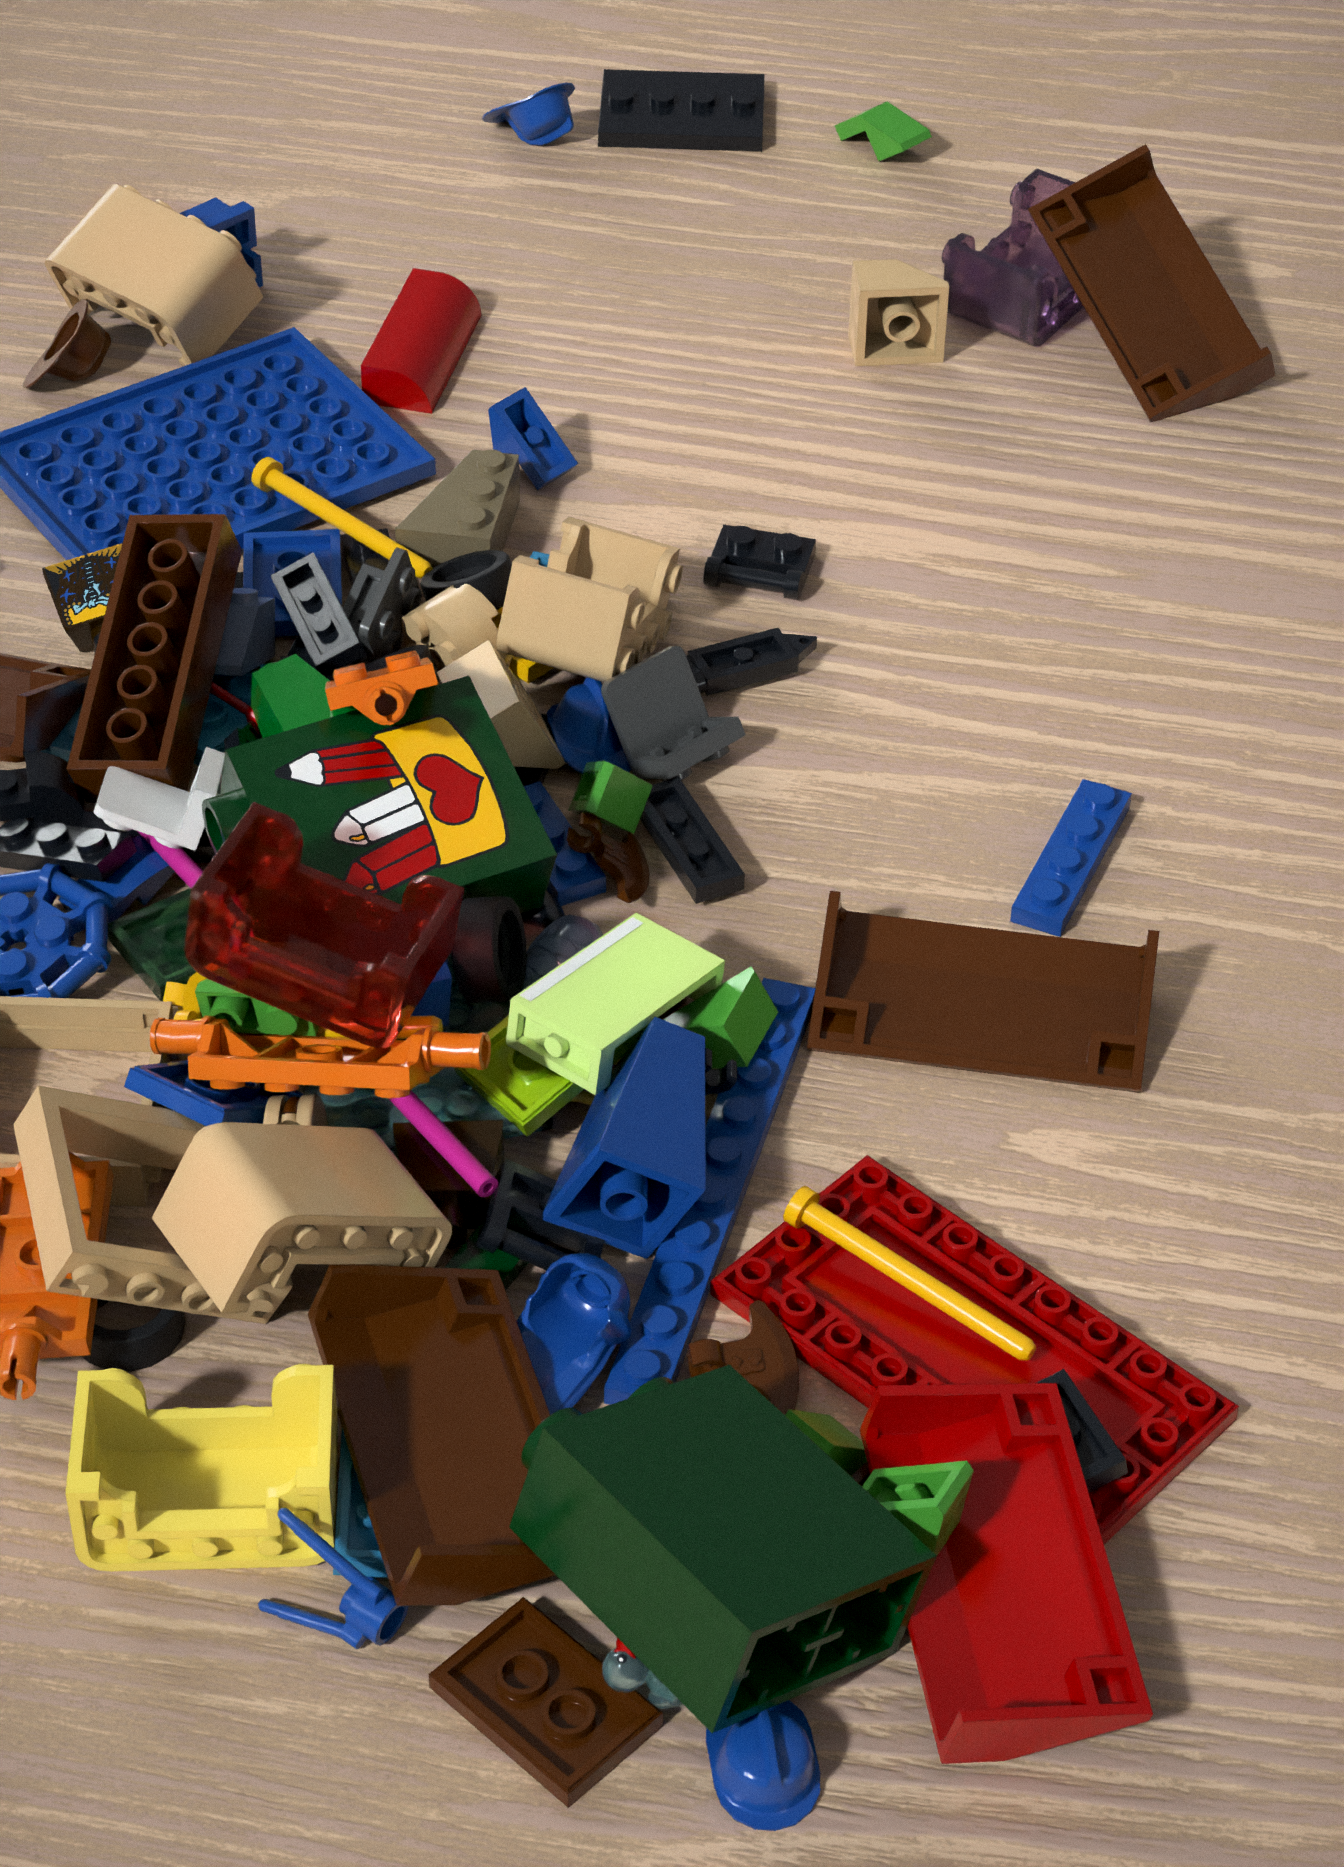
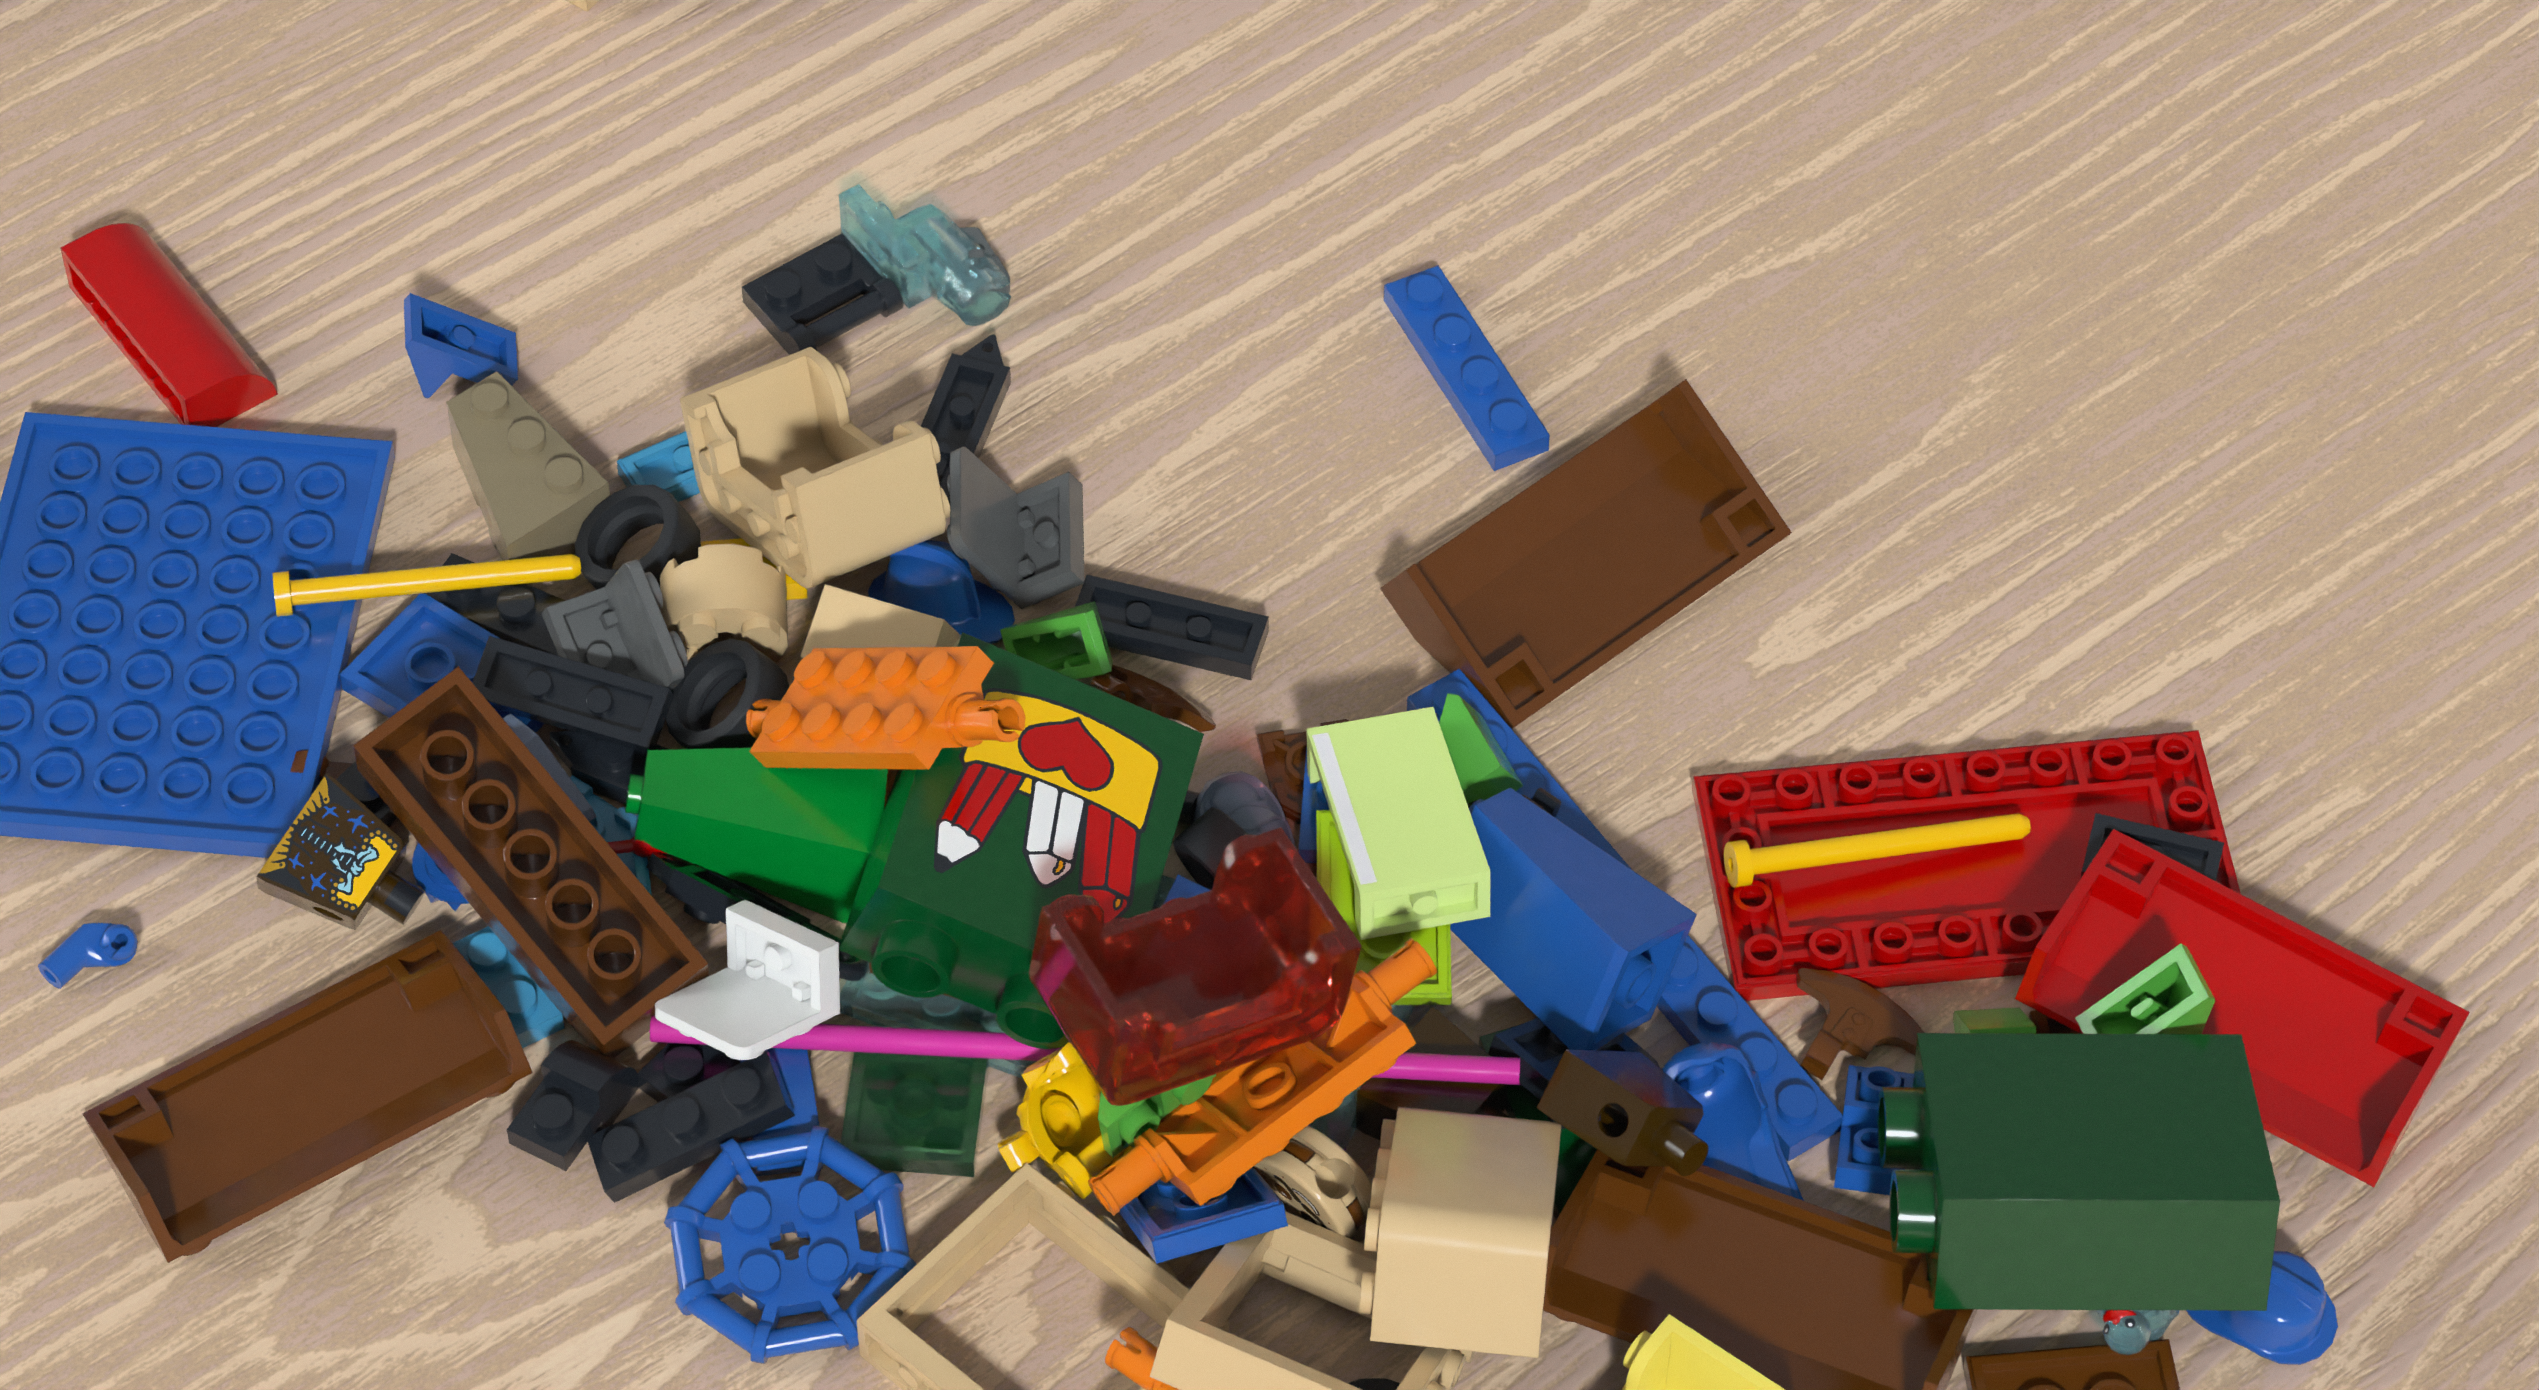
camera: 50 degrees left, 10 degrees up
(496, 1245) = (1626, 1109): none -> dark brown torso
(842, 581) = (928, 256): none -> clear light blue plate

